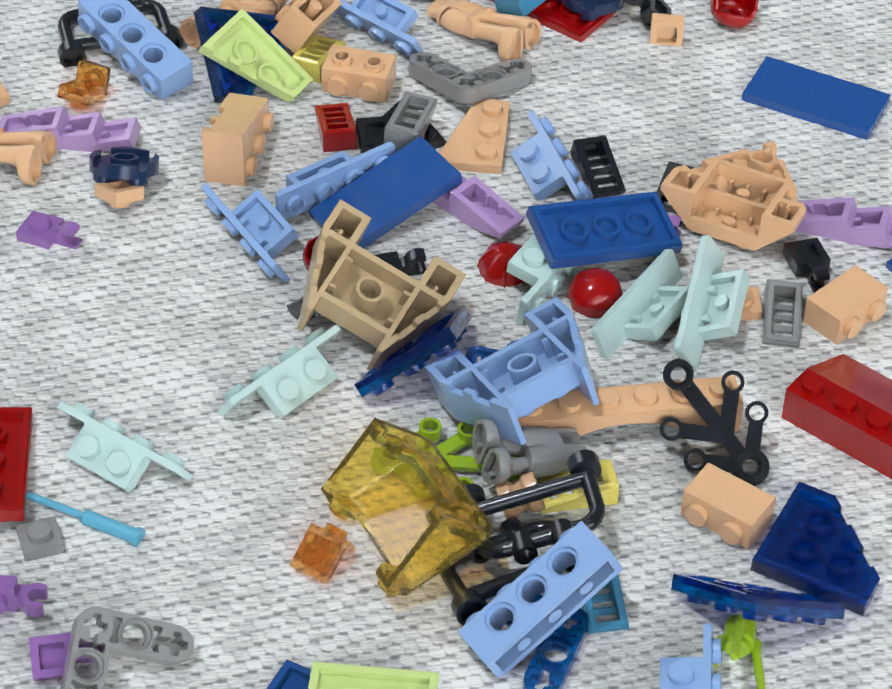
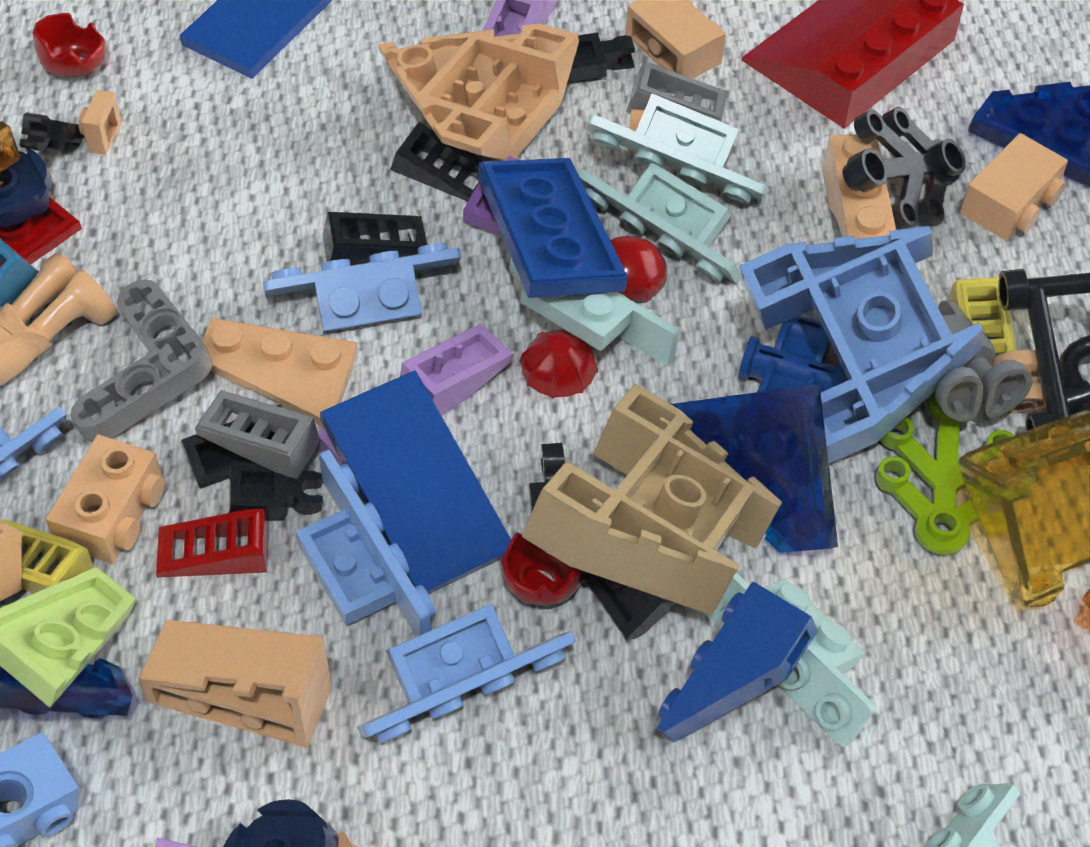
camera: 85 degrees left, 10 degrees up
(259, 334) = (749, 656): none -> blue slope

